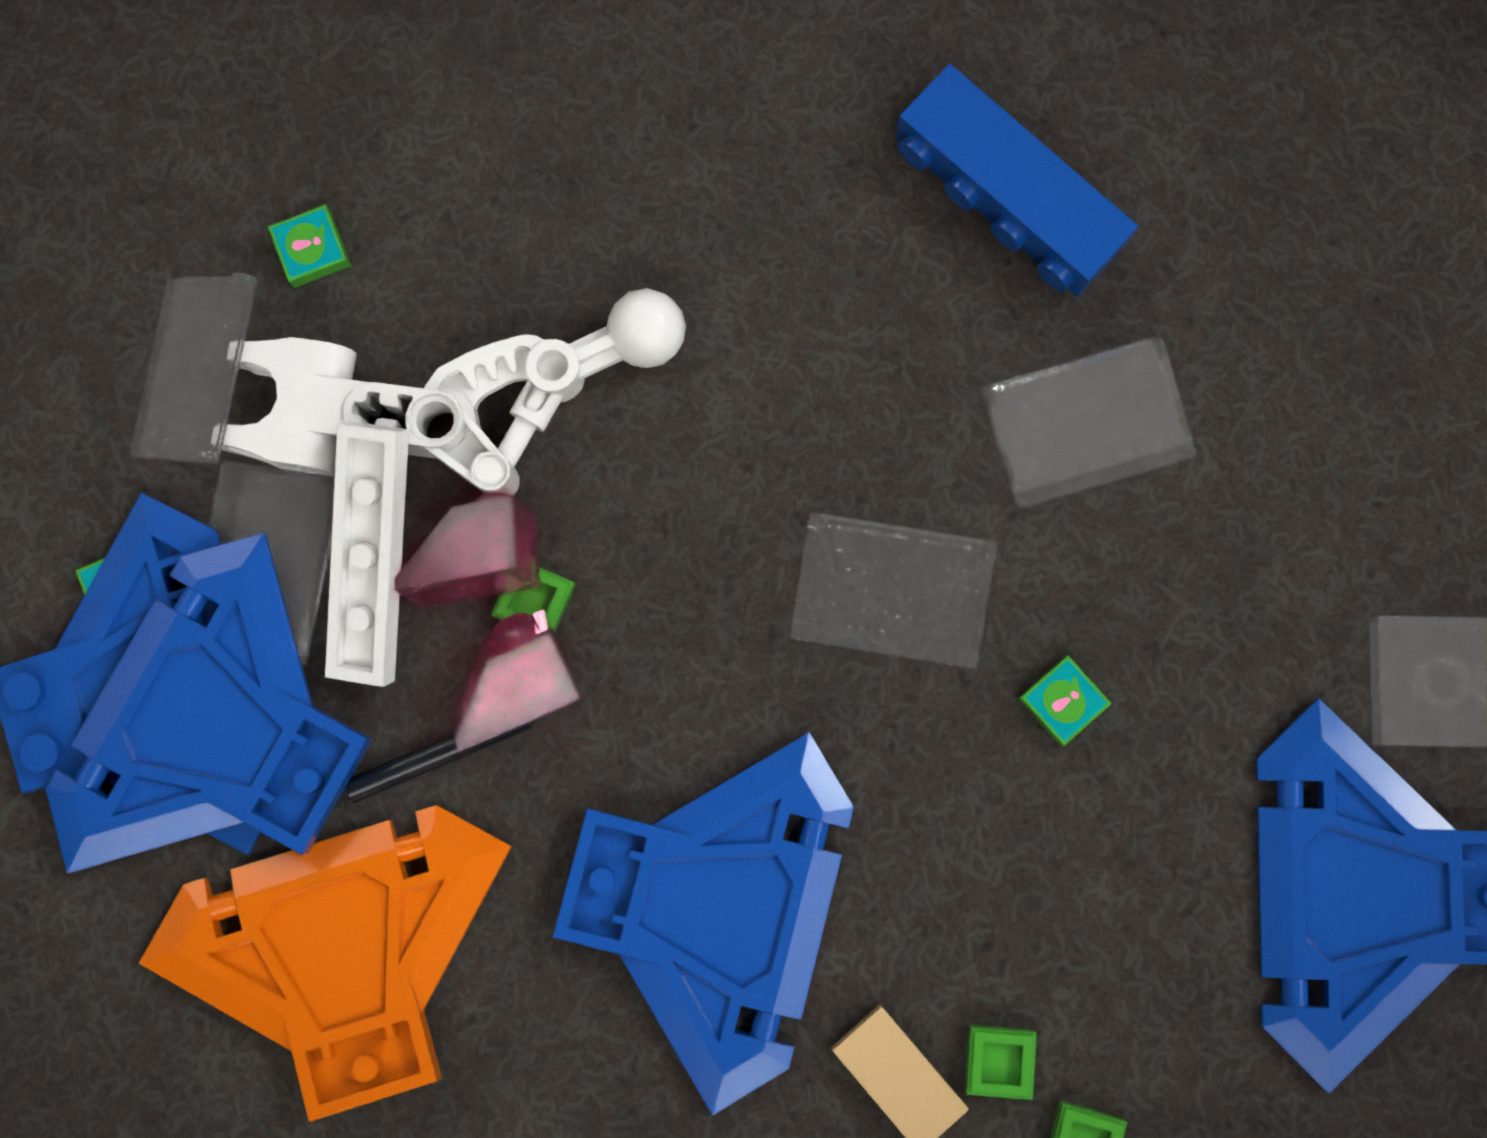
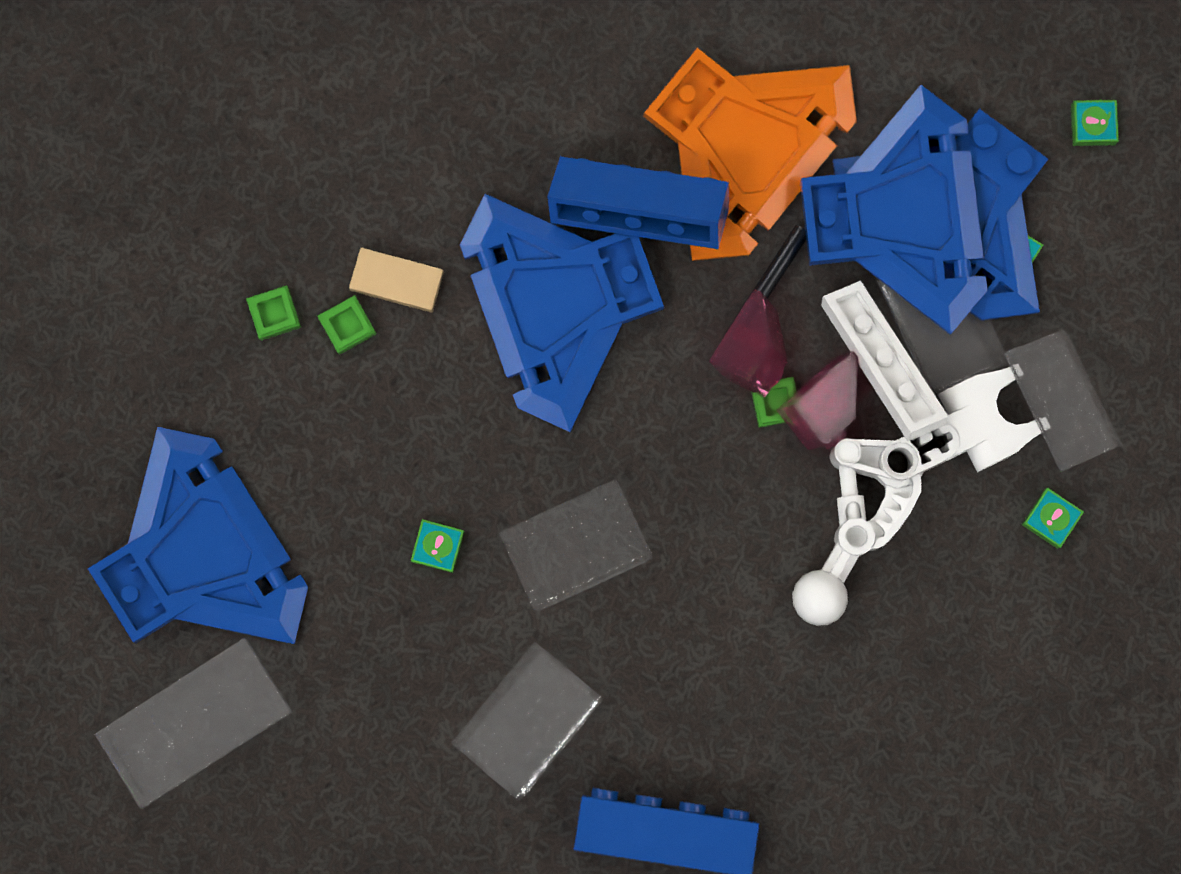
camera: 145 degrees right, 0 degrees up
(526, 965) = (639, 202): none -> blue brick

